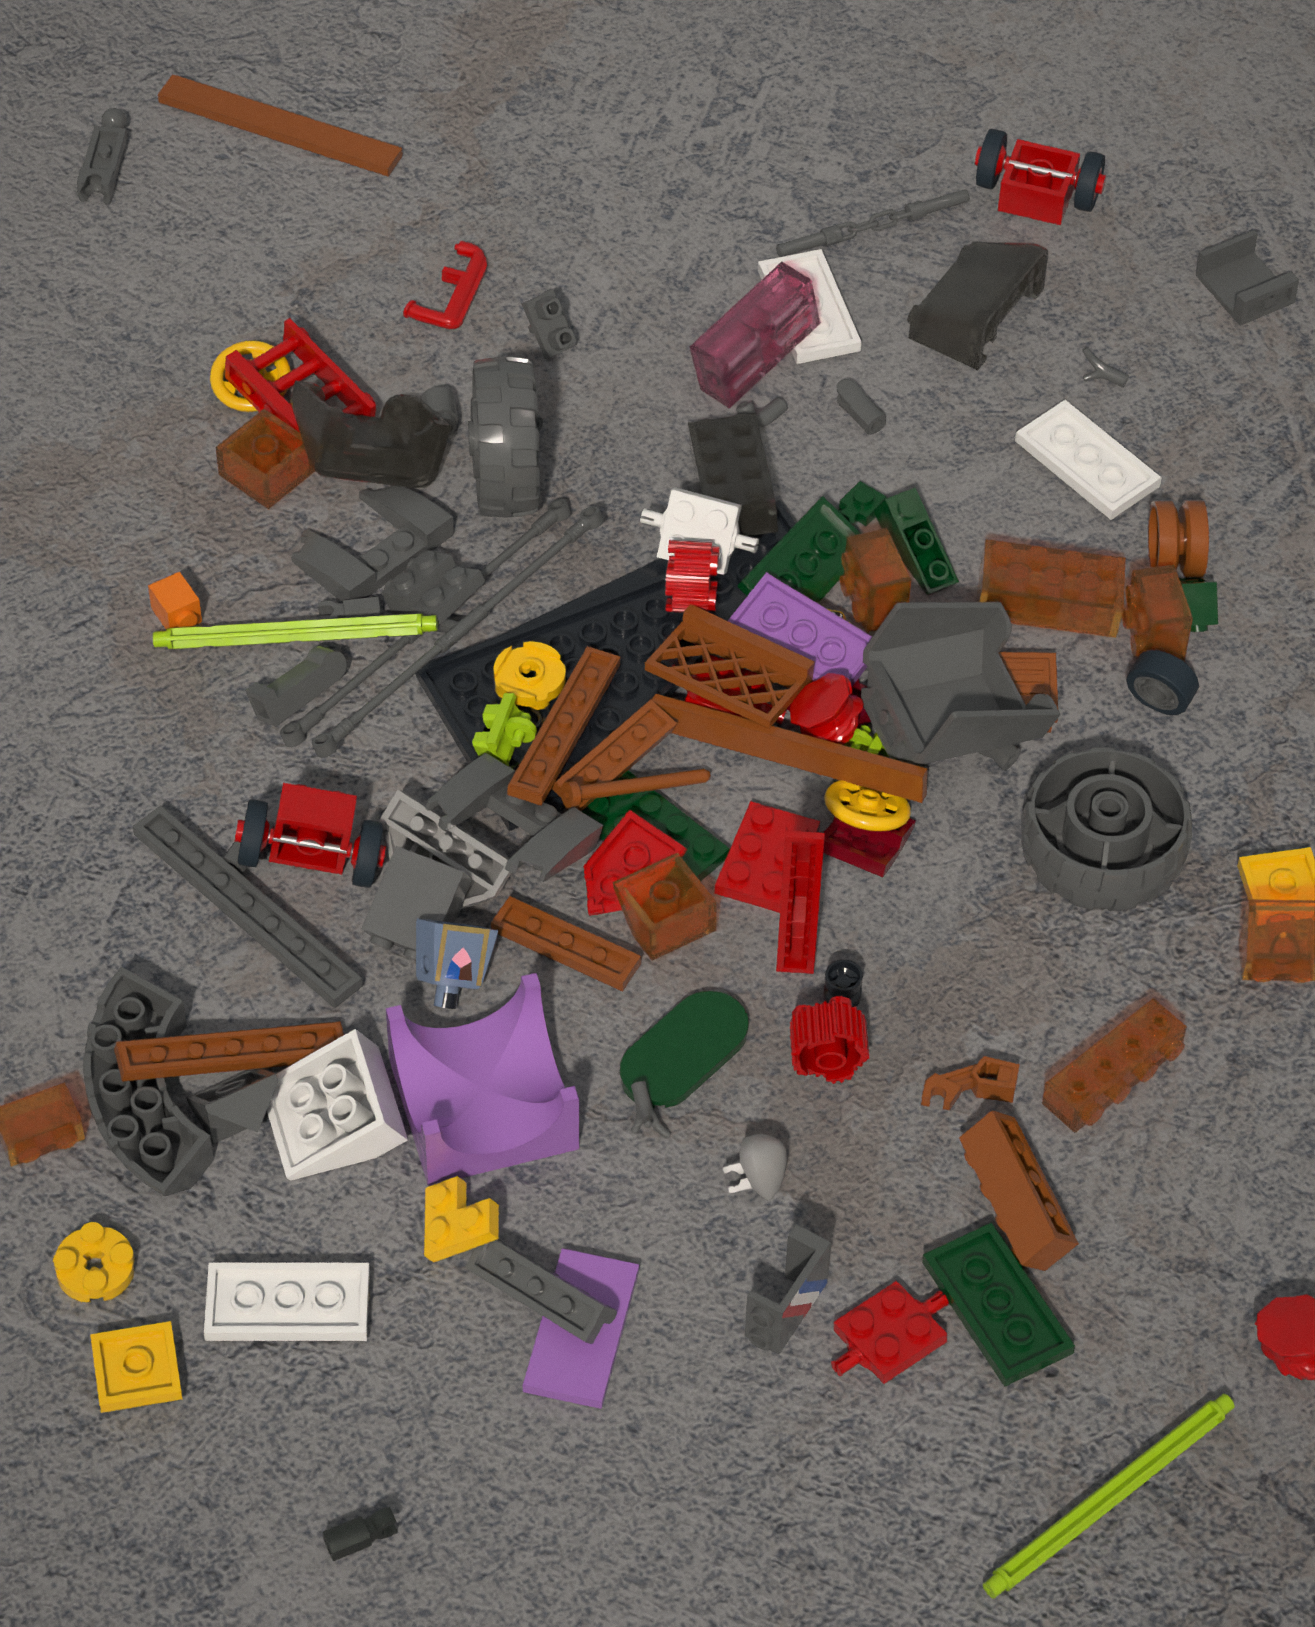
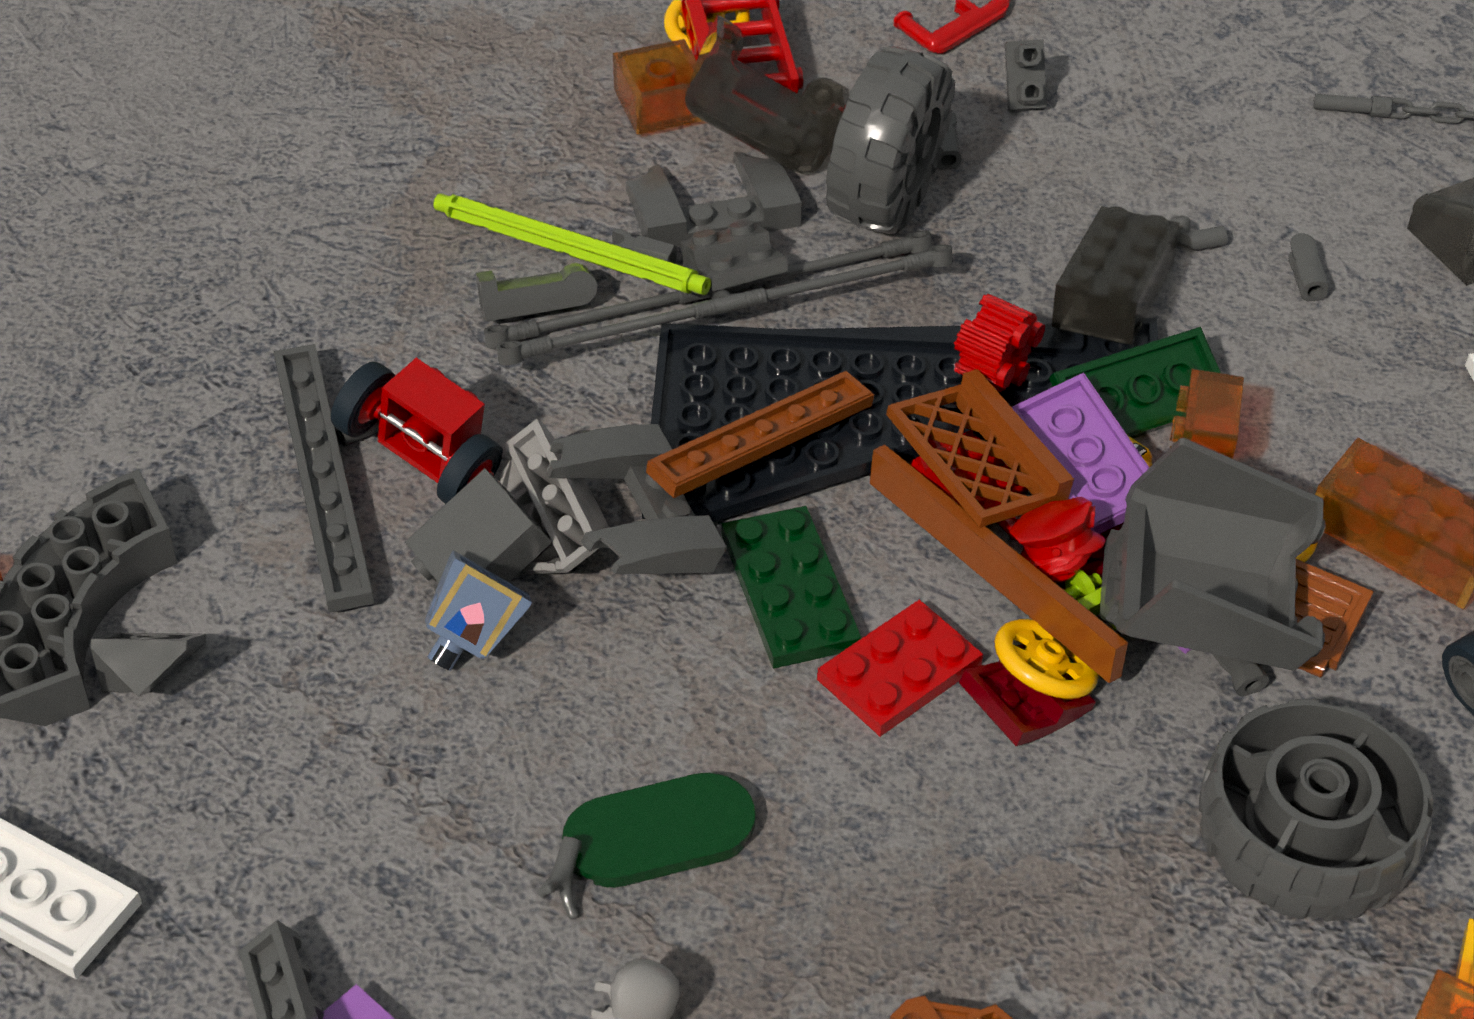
camera: 30 degrees right, 5 degrees down
(175, 602) = (479, 174): orange brick -> none
(222, 1051) = (178, 601): dark orange tile -> none
(334, 1108) = (242, 711): white slope -> none
(454, 1226) = (263, 895): yellow plate -> none
(483, 1089) = (399, 765): medium lavender piece -> none
(507, 729) = (698, 413): lime hips -> none
(533, 691) = (762, 390): yellow plate -> none
(566, 943) = (613, 657): dark orange plate -> none
(573, 794) = (717, 501): dark orange bar -> none
(620, 749) = (796, 487): dark orange plate -> none
(625, 850) = (734, 605): red tile -> none
(666, 906) = (740, 663): clear orange slope -> none
(700, 519) = (1051, 295): white plate -> none
(755, 334) = (1229, 152): clear pink brick -> none
(800, 901) = (865, 712): red slope -> none
(829, 1039) = (818, 894): red brick -> none
(837, 331) = (1313, 159): white plate -> none
(843, 979) = (884, 842): black wheel -> none
(860, 503) = (1249, 360): dark green plate -> none
(916, 540) = (1284, 415): dark green slope -> none

